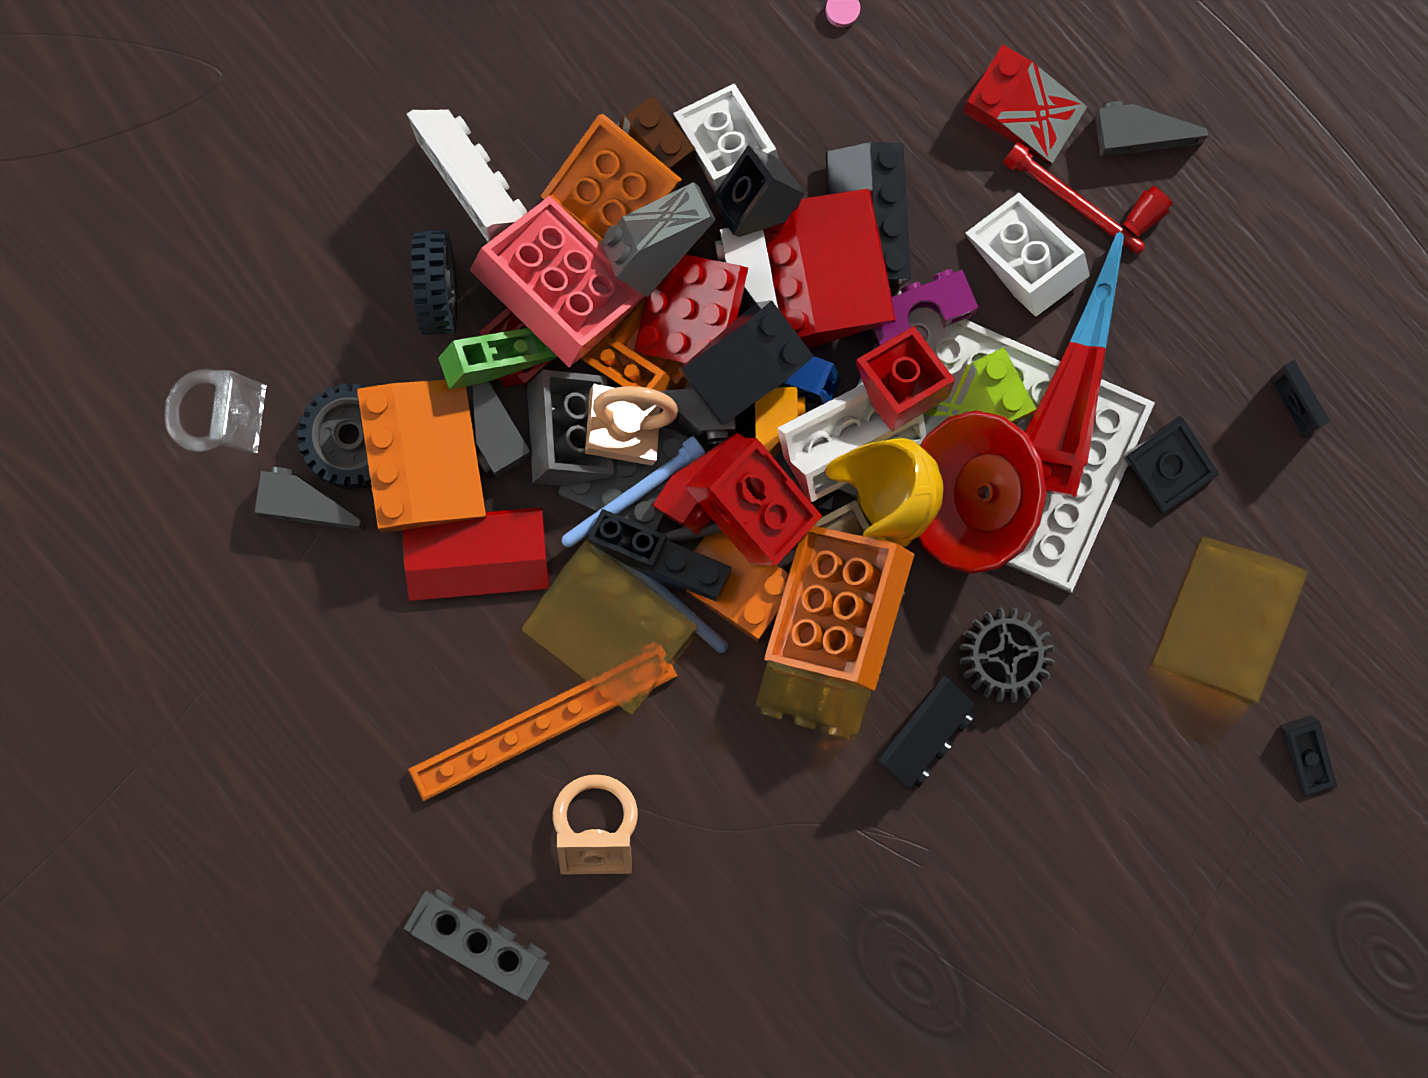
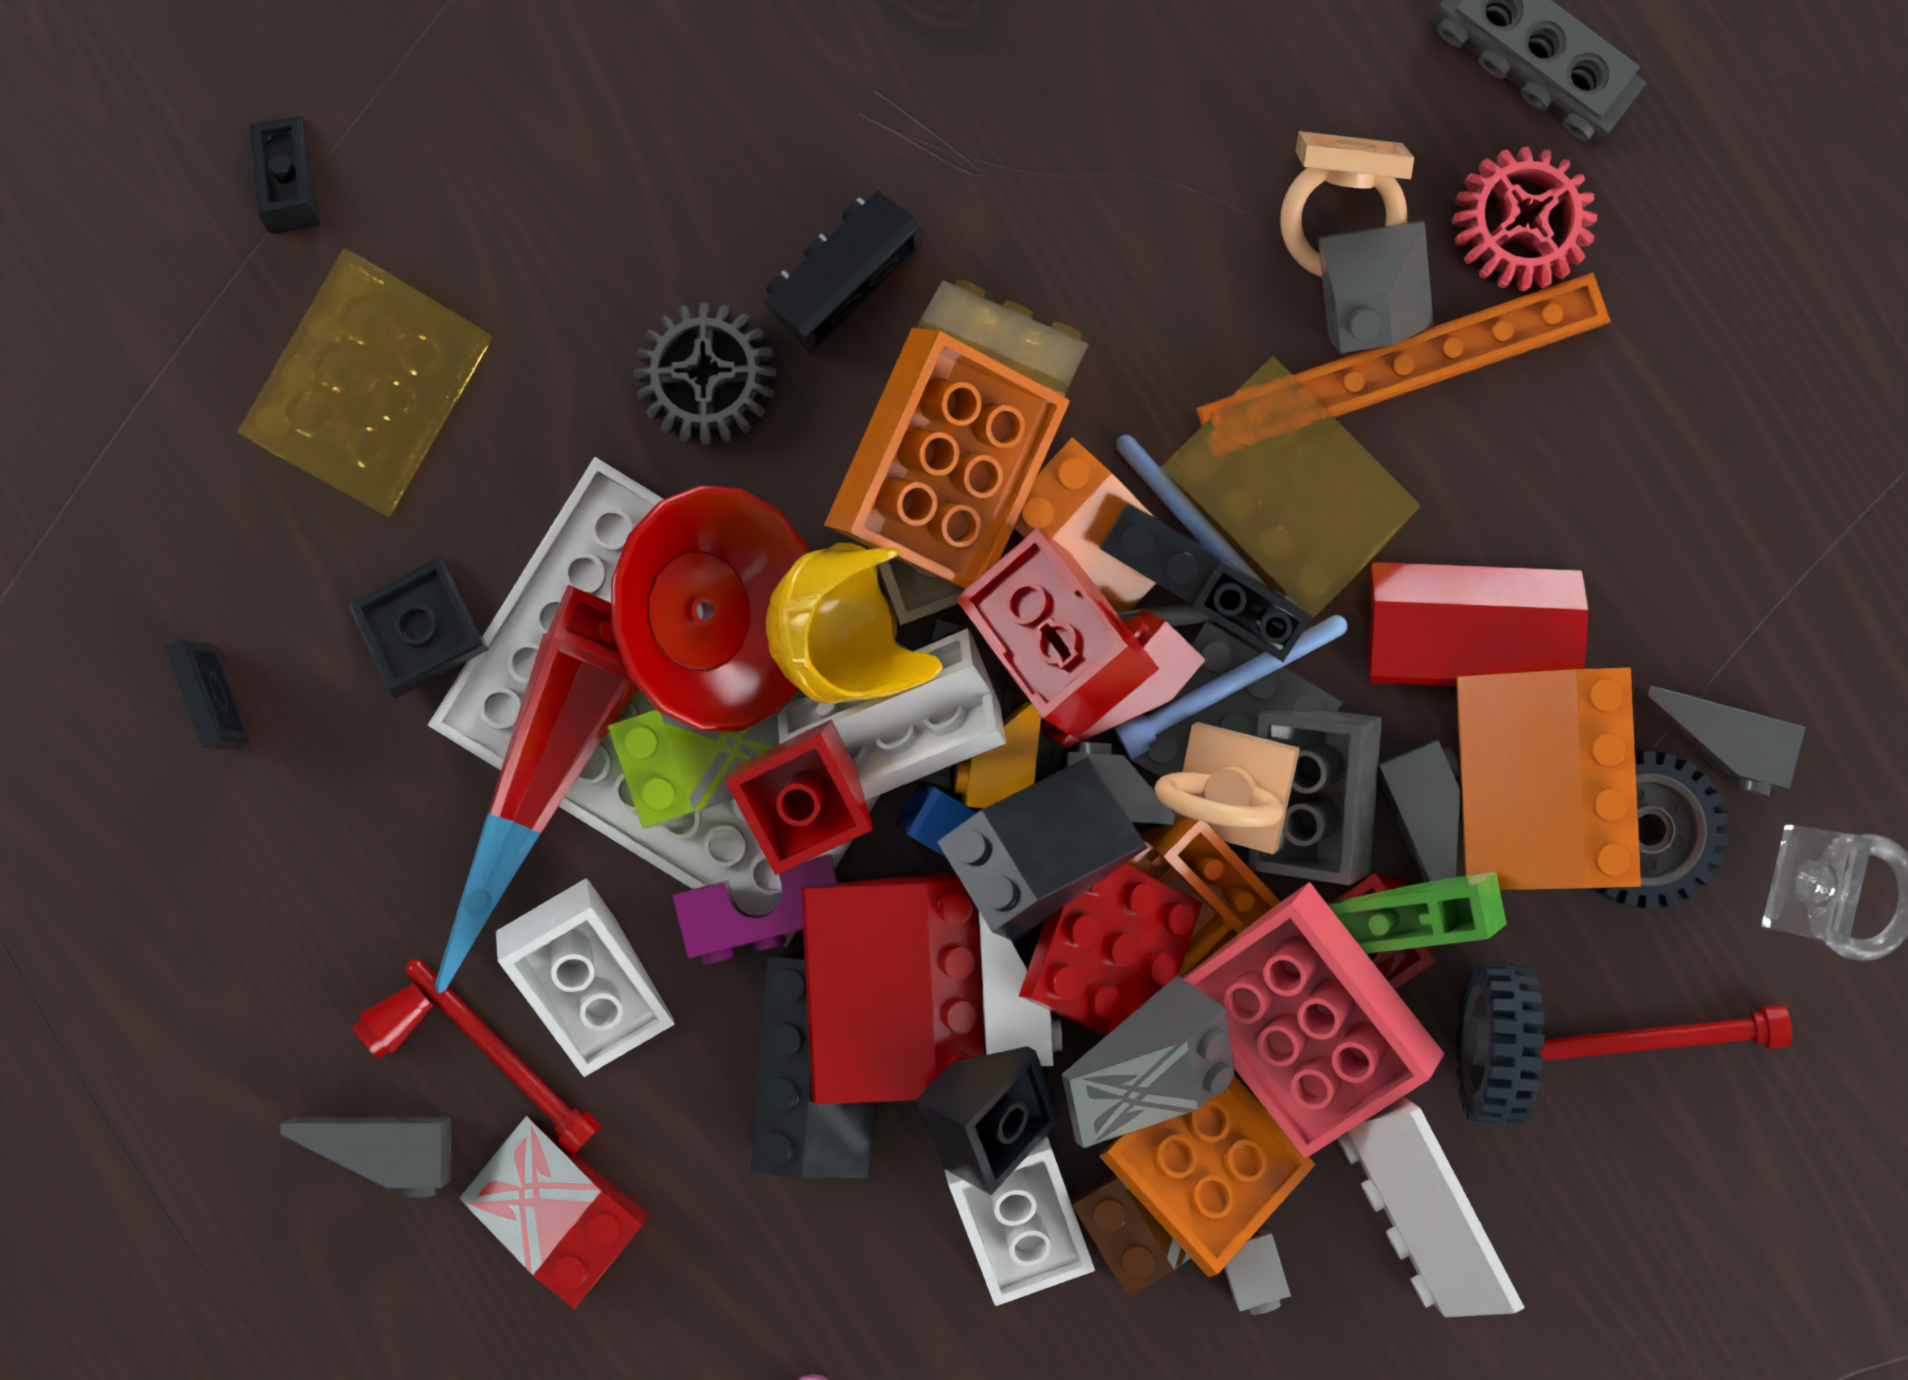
camera: 170 degrees left, 5 degrees up
(259, 319) = (1767, 1027): none -> red piece
(452, 807) = (1533, 236): none -> coral gear
(567, 769) = (1376, 286): none -> dark grey slope
(569, 122) = (1257, 1275): none -> light grey brick

